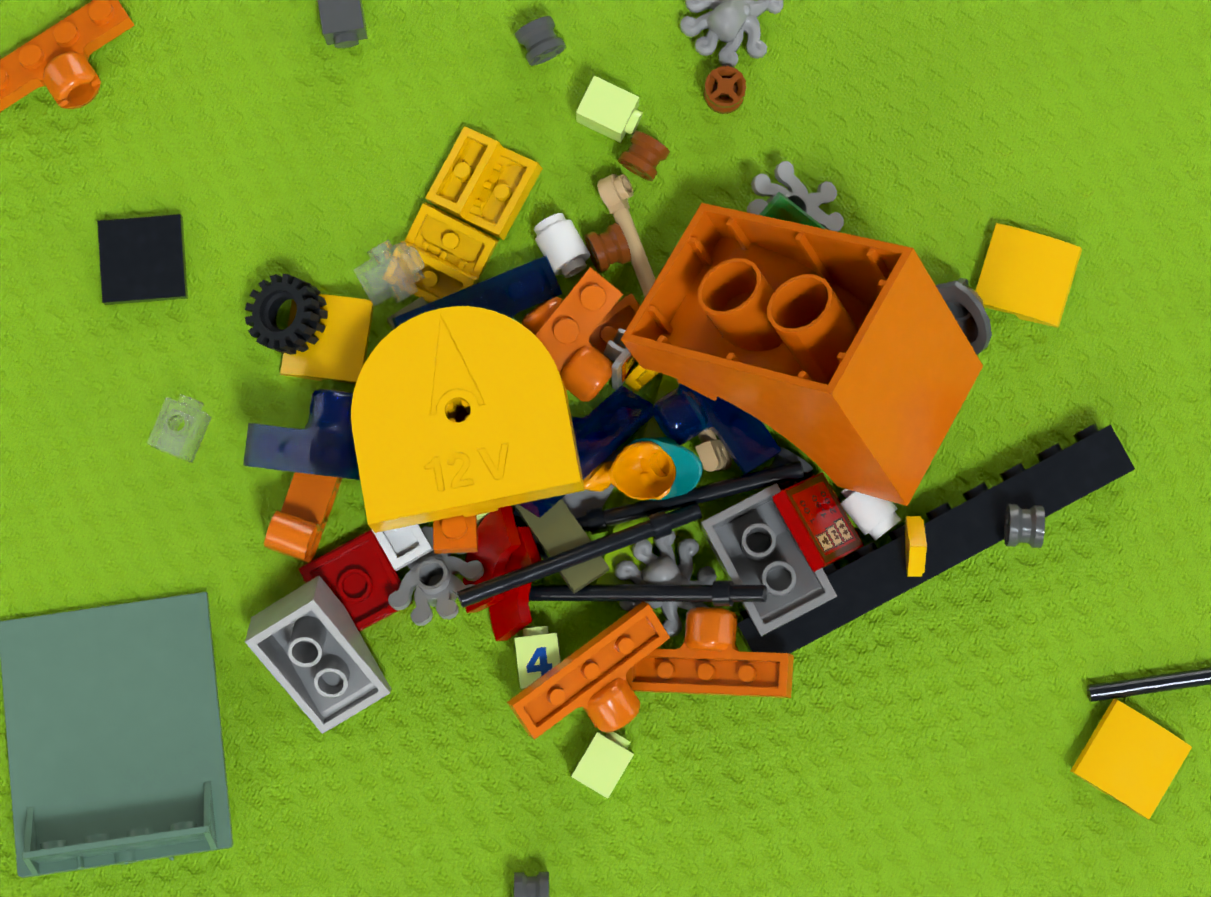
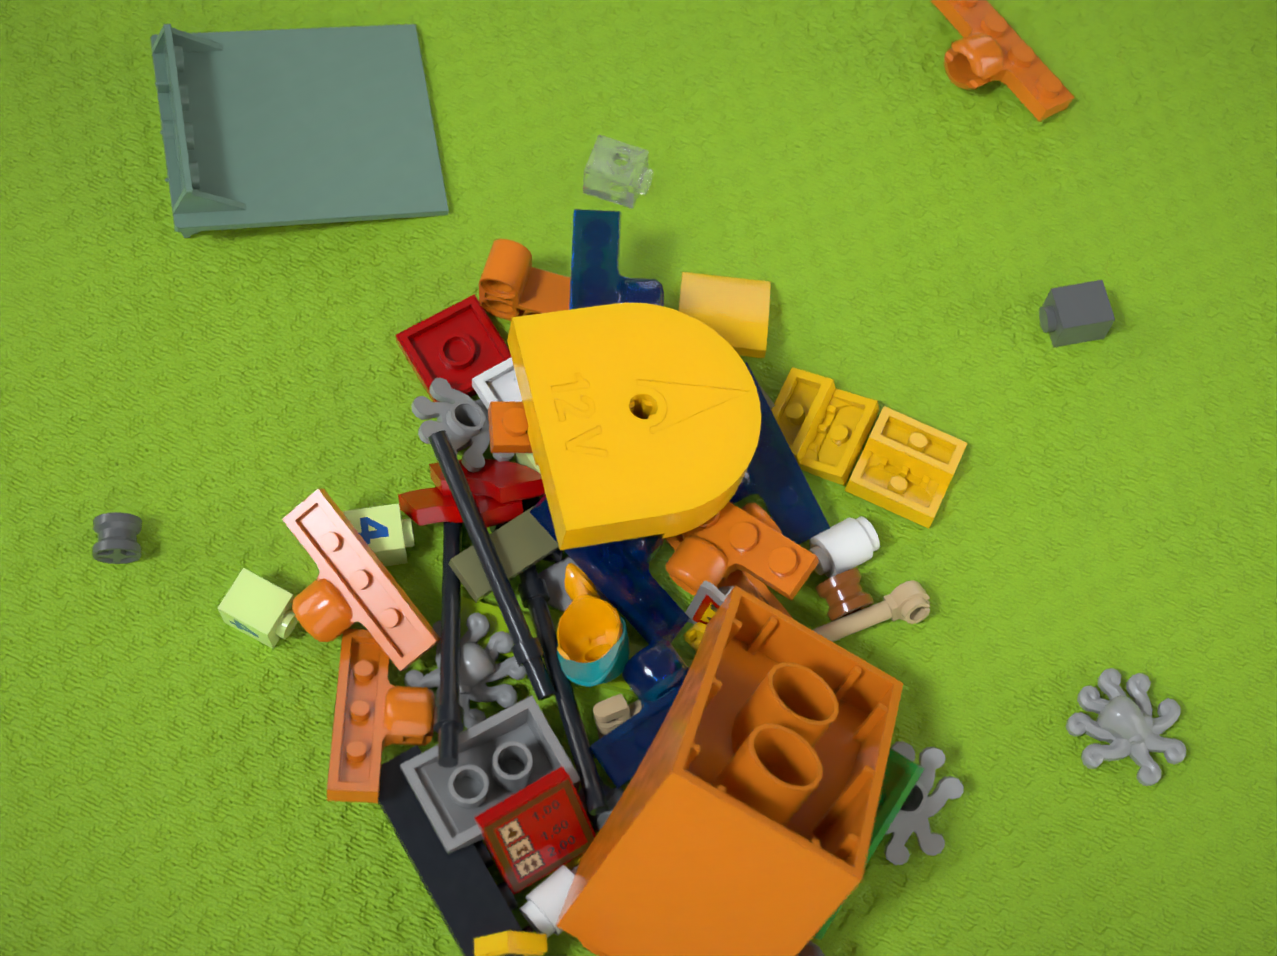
camera: 80 degrees right, 15 degrees down
(142, 259) = (794, 139): black tile -> none
(266, 308) = (743, 285): black tyre -> none
(317, 654) = (380, 310): light grey slope -> none
(390, 272) = (797, 365): clear brick -> none
(540, 40) = (1072, 516): dark grey wheel -> none
(609, 110) = (1002, 591): yellowish green brick -> none
(643, 155) = (953, 631): dark orange wheel -> none
(730, 83) = (1047, 712): dark orange wheel -> none

